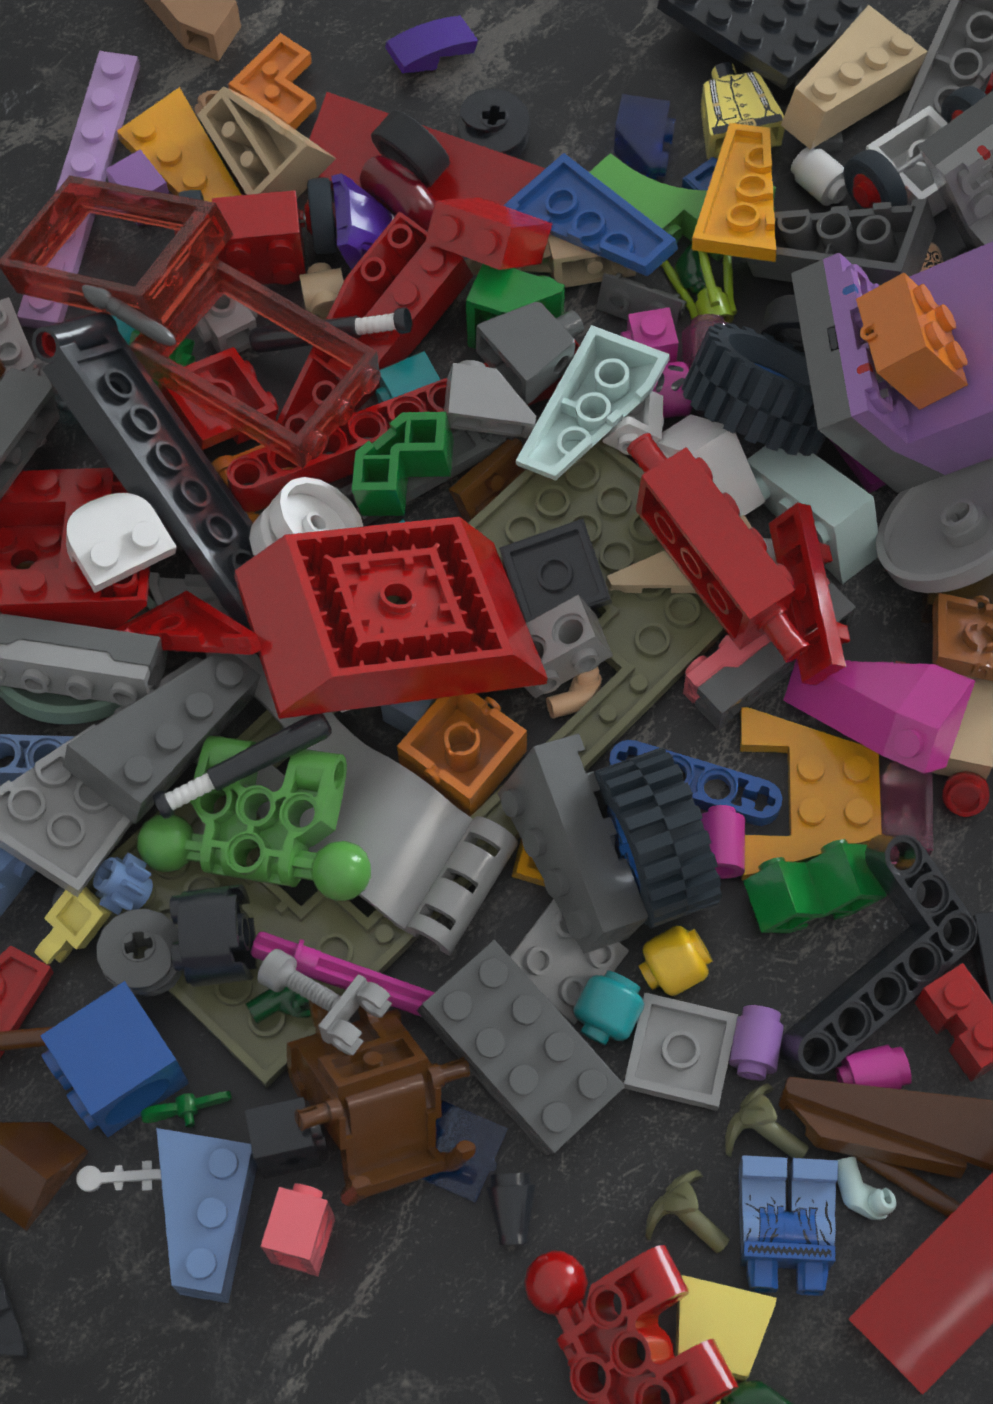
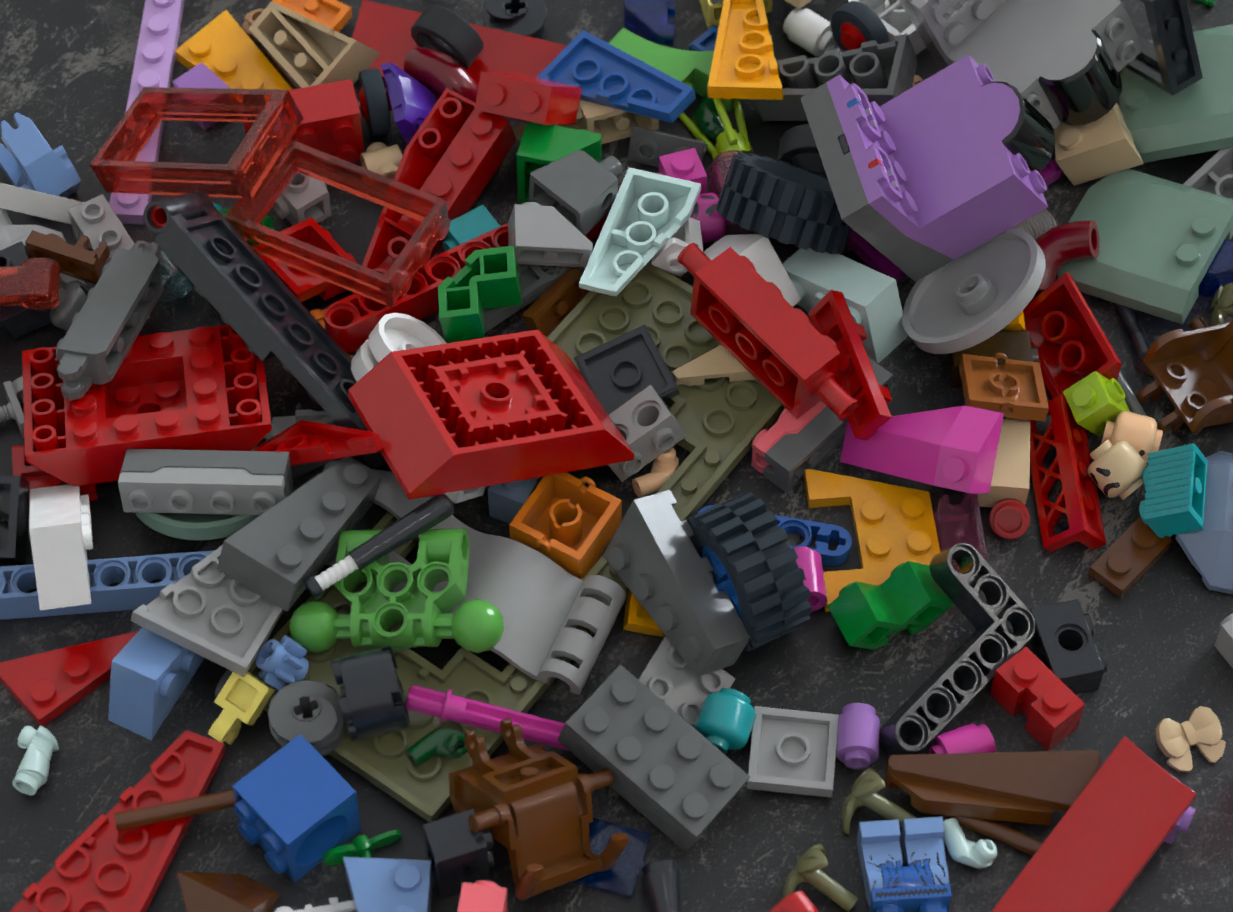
camera: 10 degrees left, 10 degrees down
(103, 300) = (198, 179): dark grey piece -> none
(116, 538) = (238, 374): white slope -> none
(276, 338) = (353, 205): black piece -> none
(280, 972) = (494, 748): light grey bar -> none
(675, 960) = (777, 678): yellow head -> none
(912, 341) = (912, 139): orange brick -> none

